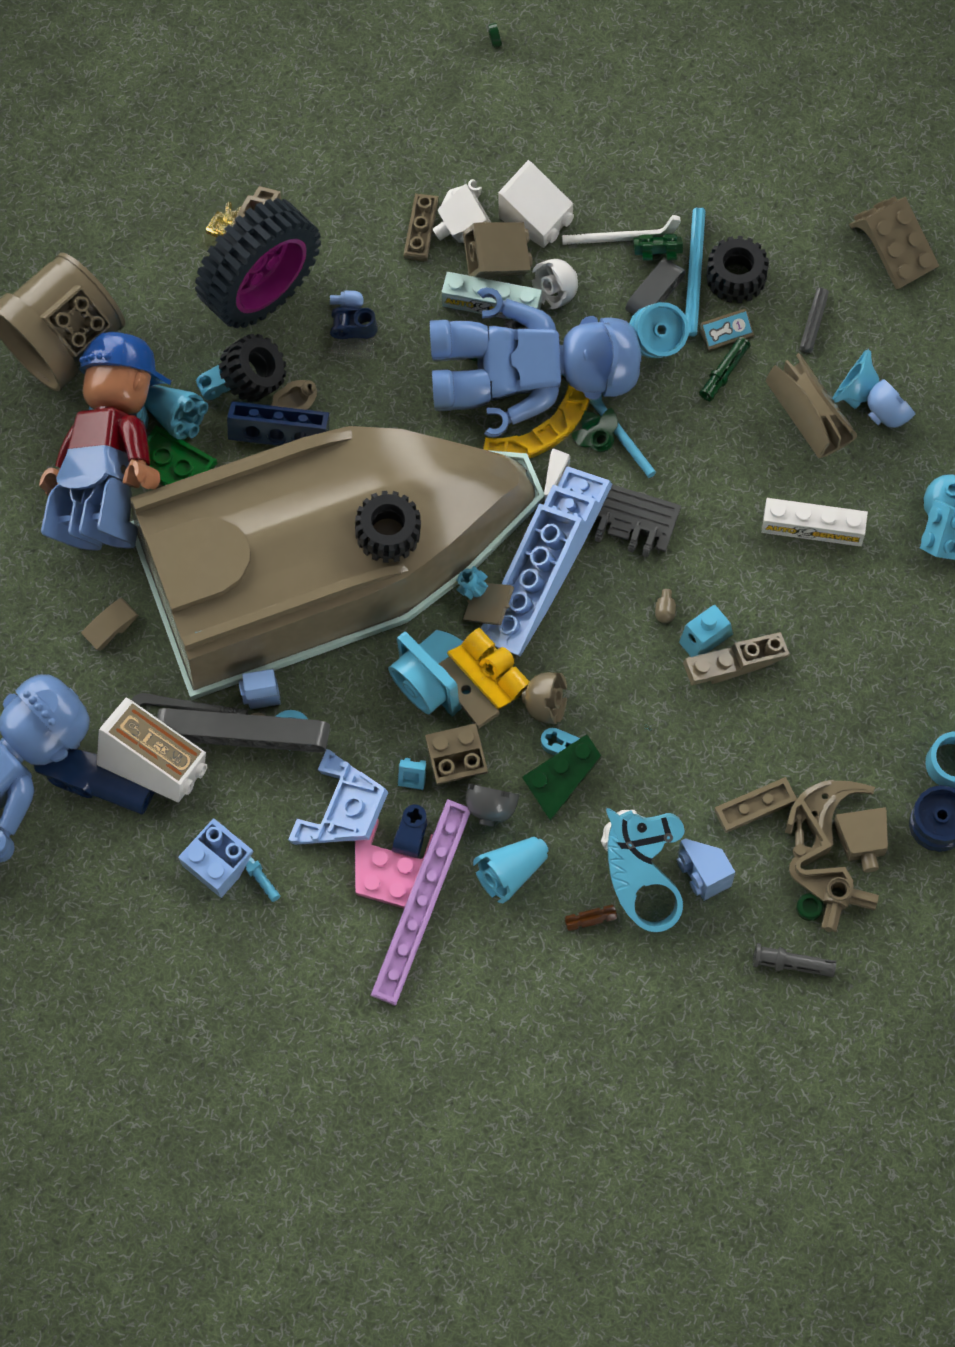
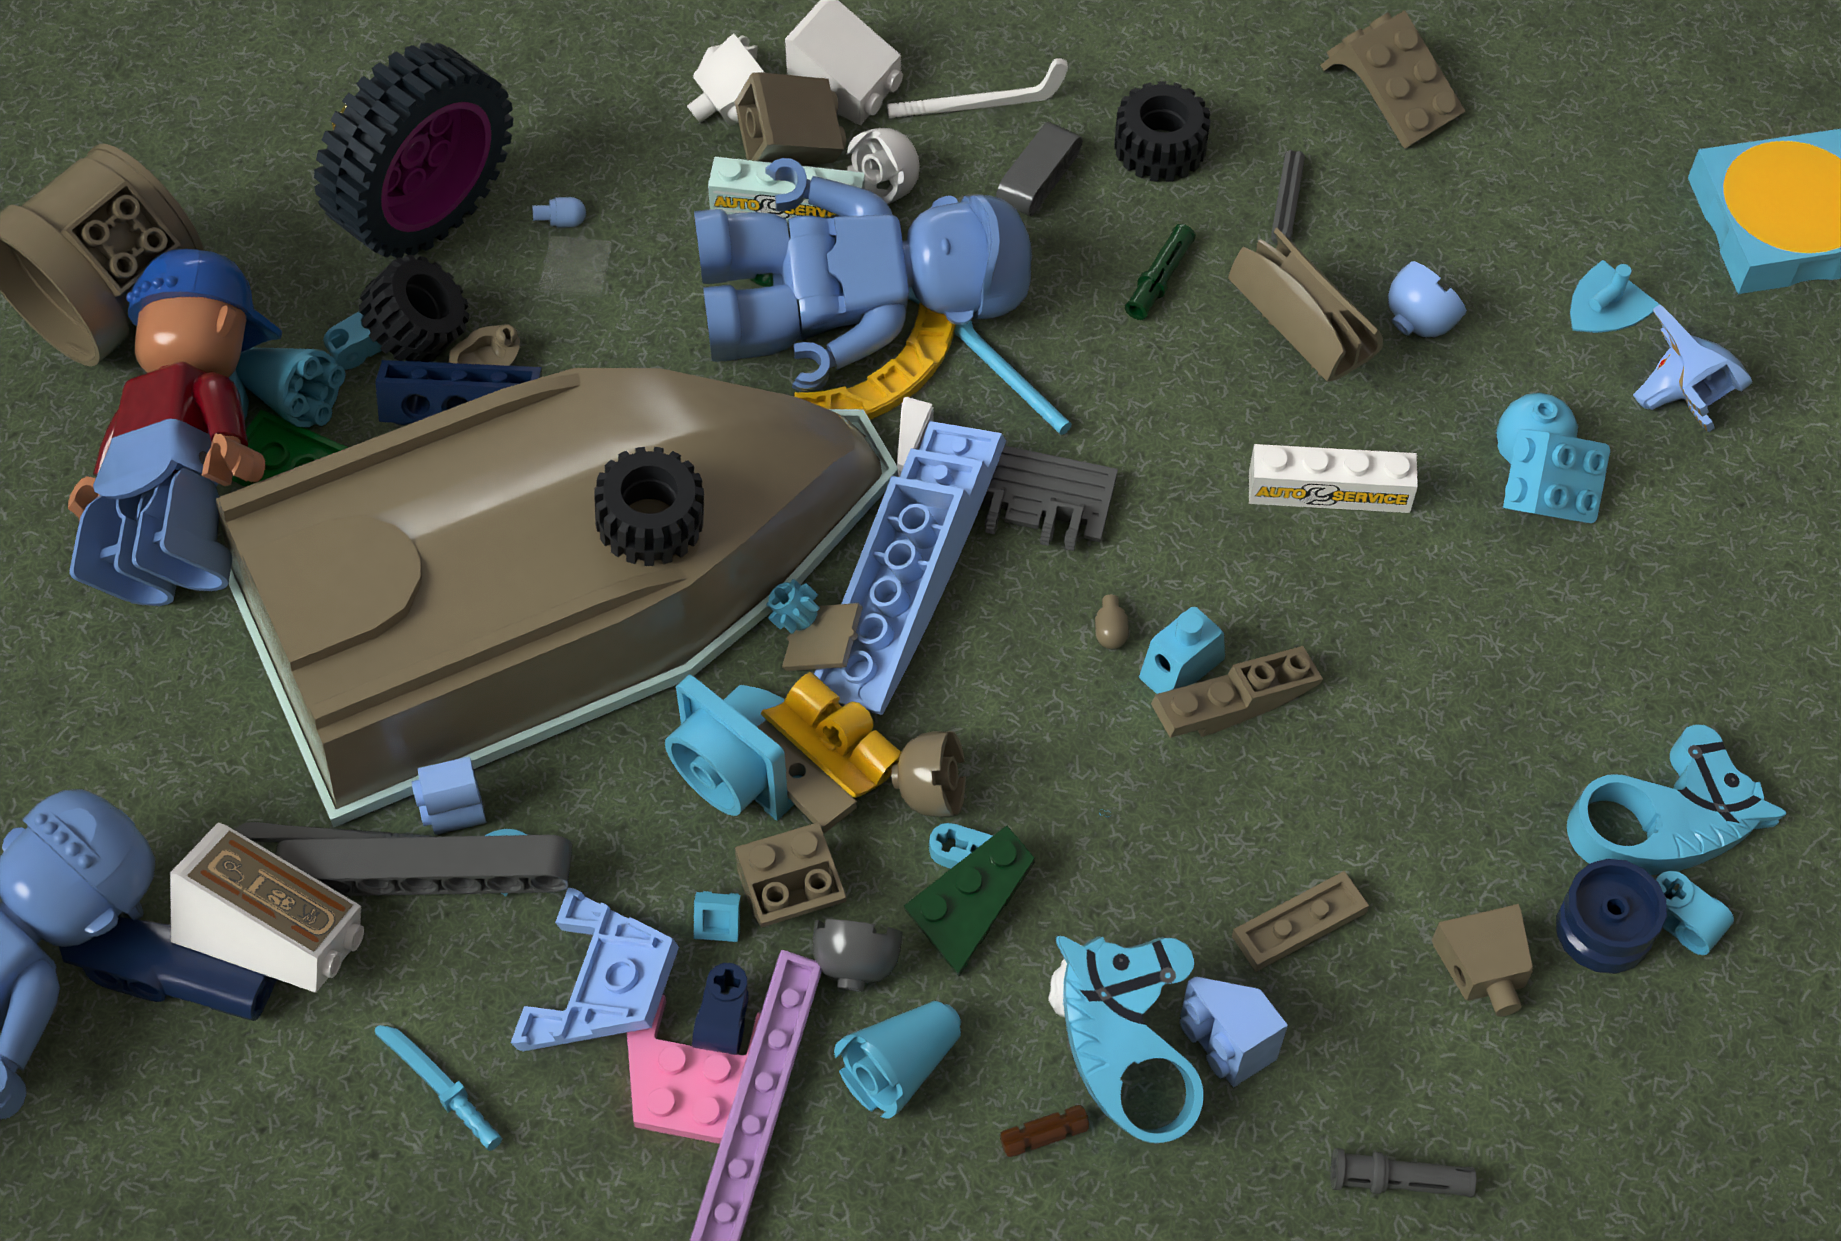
camera: 10 degrees left, 10 degrees down
(109, 622) = (188, 714): dark tan slope -> none
(216, 857) = (385, 1082): light blue slope -> none
(351, 323) = (575, 240): dark blue piece -> none
(418, 236) = (668, 107): dark tan tile -> none
(595, 428) = (968, 369): dark green plate -> none
(648, 245) = (1023, 108): dark green plate -> none
(663, 318) = (1058, 215): medium azure wheel -> none
(695, 269) = (1096, 143): medium azure axle -> none
(726, 329) = (1154, 216): slope -> none
(809, 907) = (1414, 1081): dark green tile -> none
(821, 881) = (1433, 1033): dark tan piece -> none
(858, 382) = (1371, 273): medium azure hat -> none

